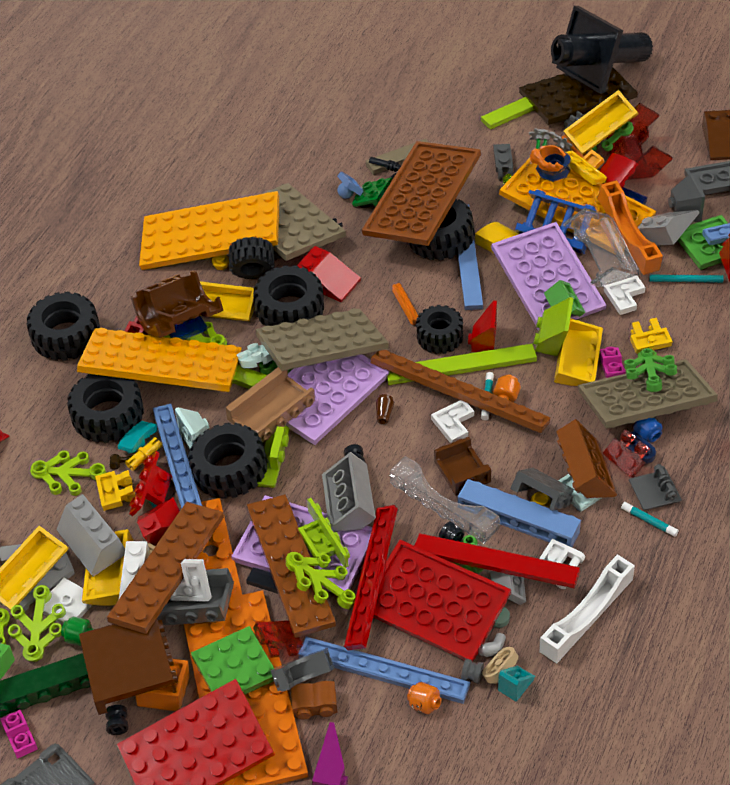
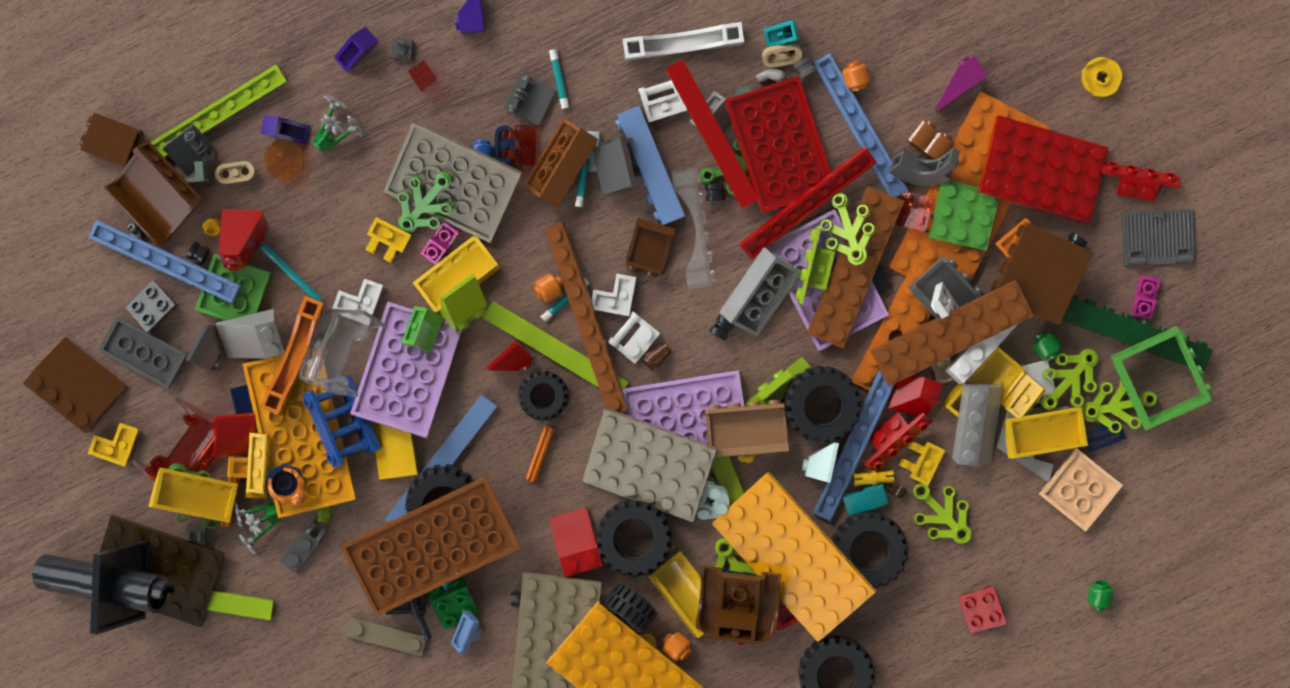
camera: 140 degrees left, 40 degrees up
(68, 580) = (1022, 395): none -> yellow plate
(199, 266) = (676, 646): none -> orange head
(406, 410) = (638, 342): none -> white plate
(557, 467) = (582, 183): none -> teal bar
(676, 127) = (115, 450): none -> yellow plate

